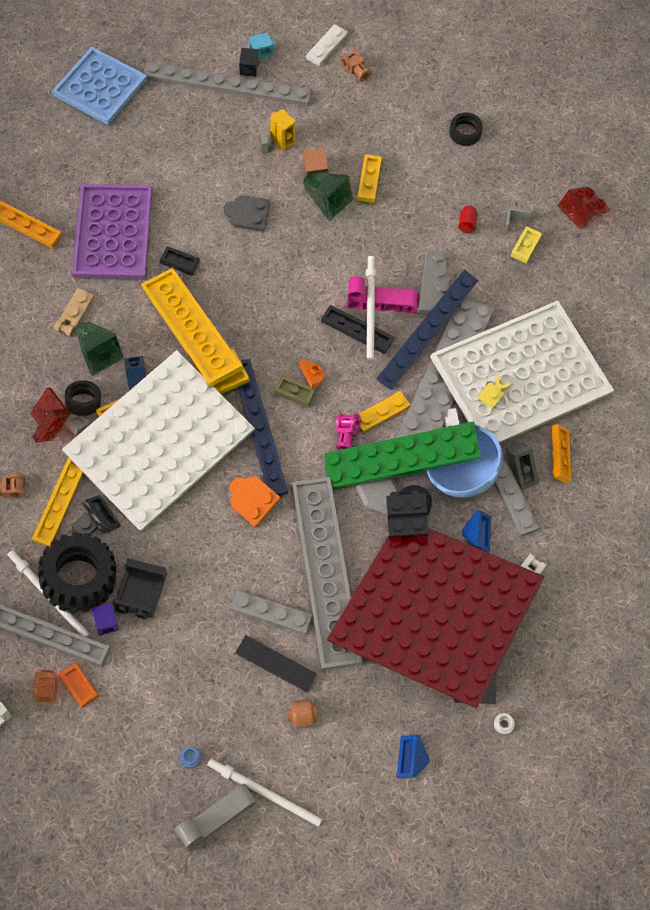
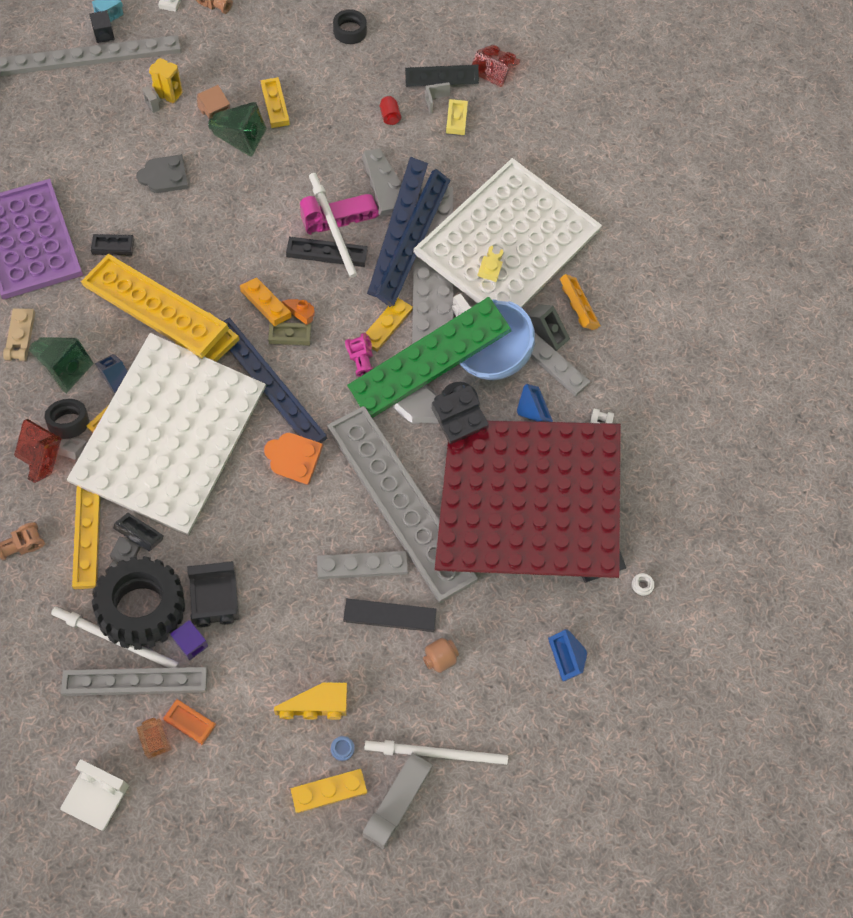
camera: 25 degrees left, 0 degrees up
(164, 786) = (328, 791): none -> yellow plate
(189, 710) = (322, 700): none -> yellow slope
(285, 355) = (265, 301): none -> light orange plate
(438, 340) = (413, 234): none -> dark blue plate
(529, 201) = (441, 74): none -> black plate

